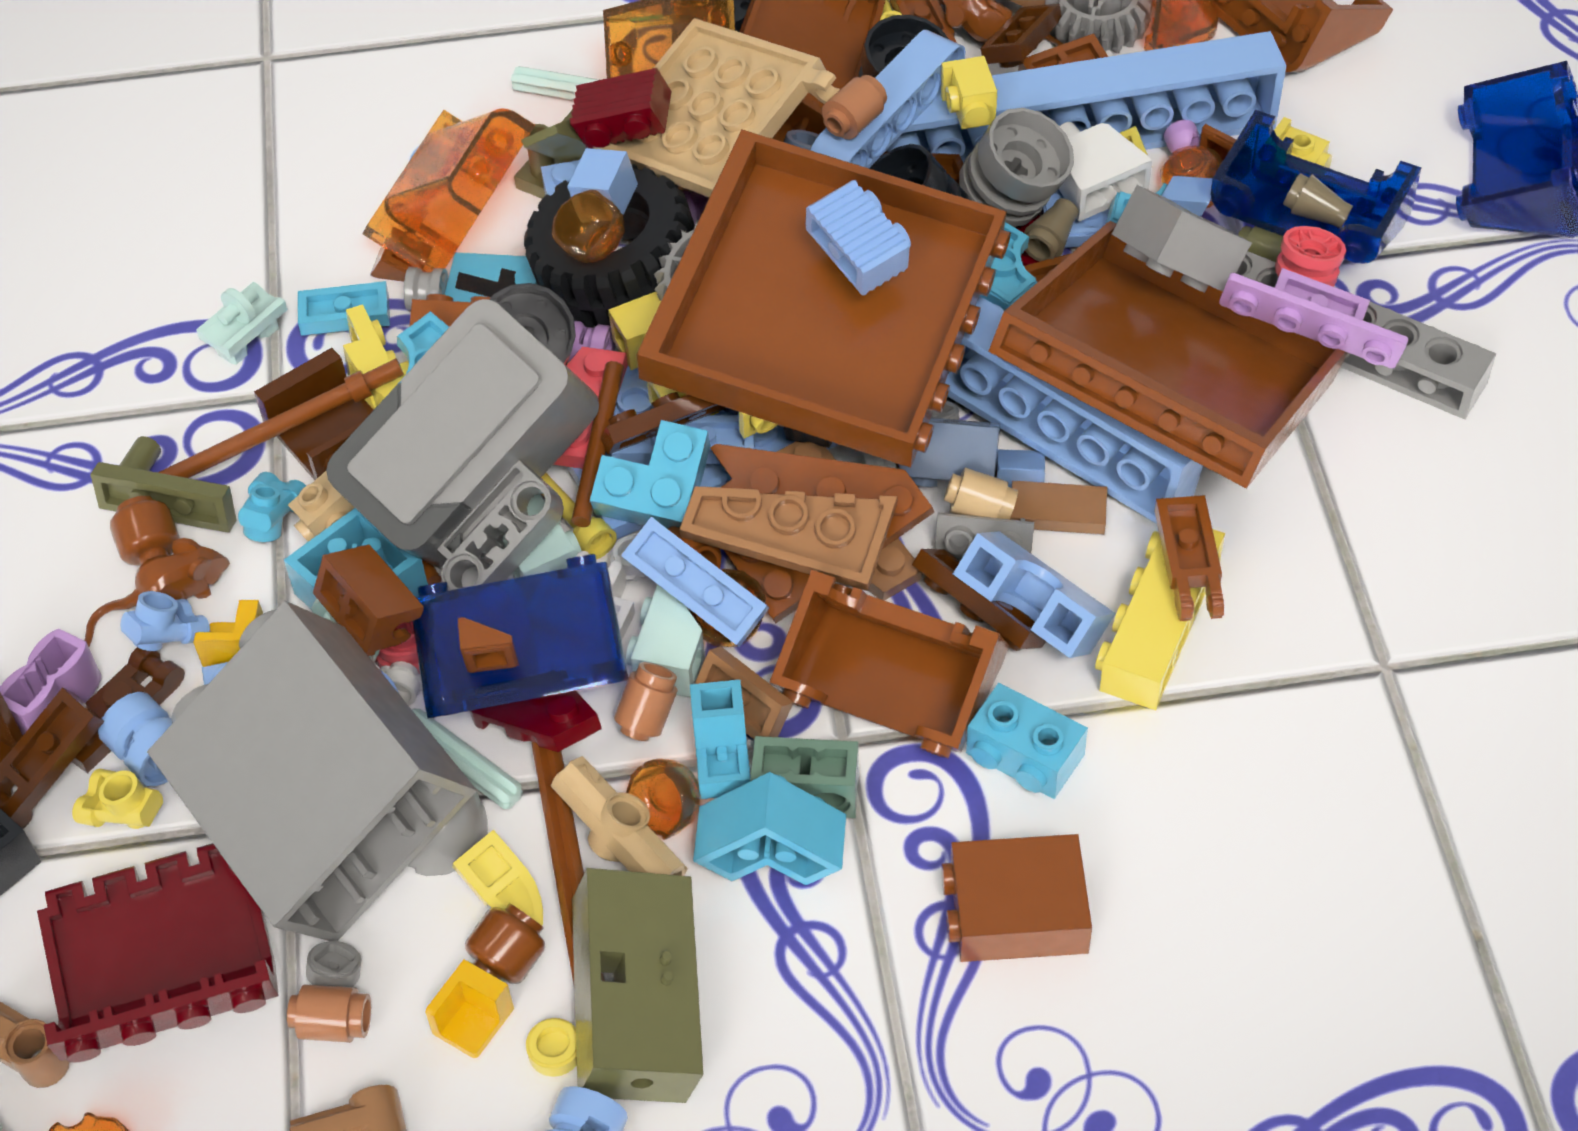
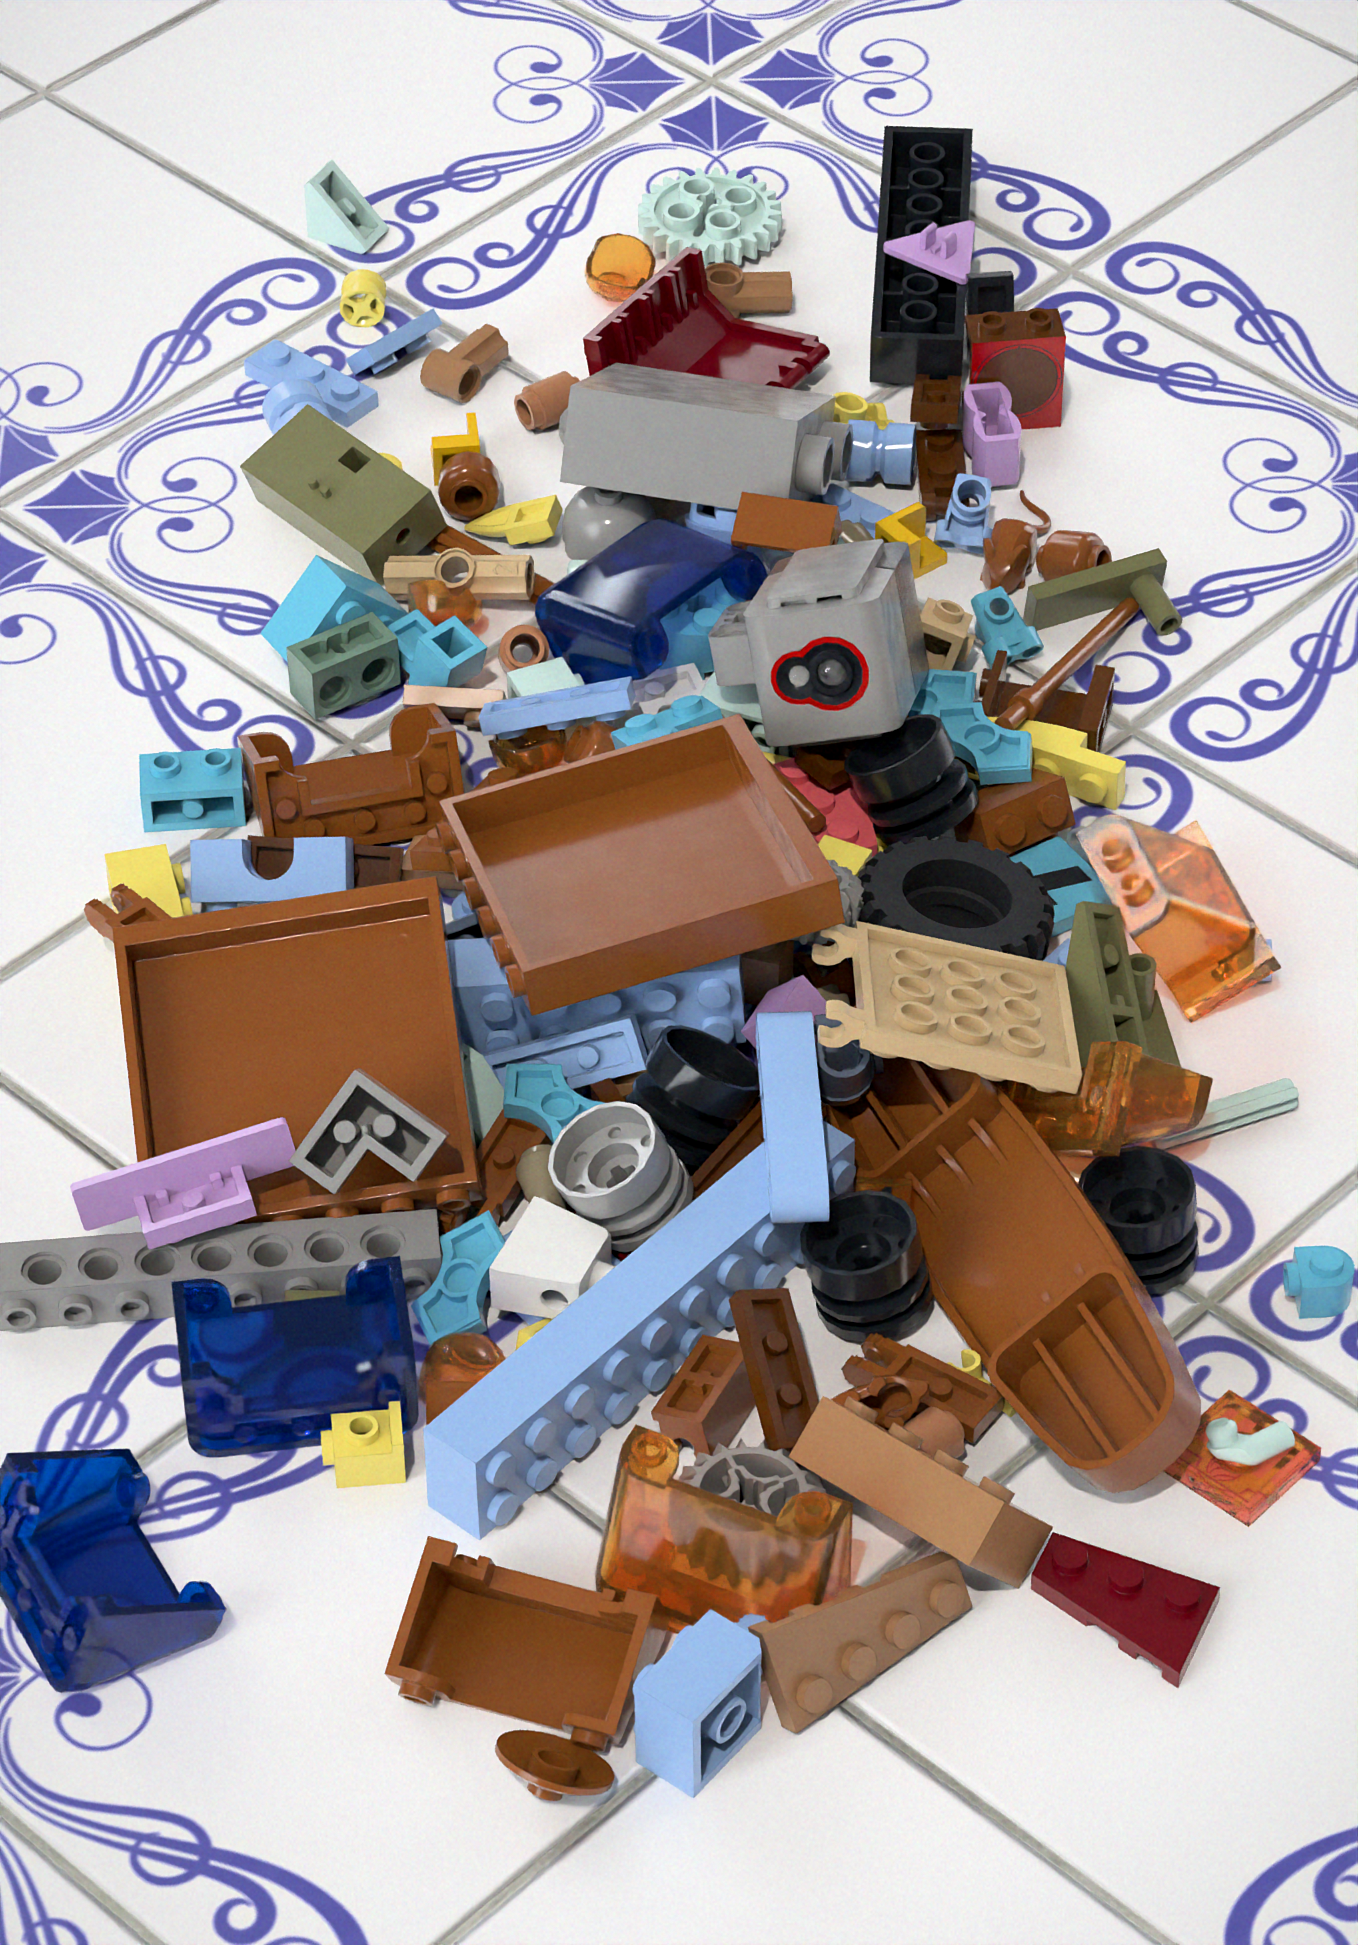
camera: 140 degrees right, 10 degrees down
(241, 319) = (1217, 731): light aqua hips -> none
(325, 308) = (1157, 793): medium azure plate -> none
(485, 647) = (645, 528): dark orange slope -> none
(588, 226) = (938, 847): clear orange hair -> none
(605, 172) = (978, 890): light blue brick -> none
(621, 108) = (1047, 960): dark red brick -> none
(793, 530) = (512, 759): medium nougat wing -> none
(854, 107) = (789, 1026): nougat brick -> none
(859, 236) = (629, 856): light blue brick -> none
(969, 91) = (720, 1171): light yellow brick -> none
(1017, 898) = (109, 693): dark orange brick -> none
(1189, 192) = (438, 1305): light blue slope -> none
(1311, 254) = (231, 1246): coral wheel -> none
(1316, 201) = (291, 1360): dark tan cone -> none

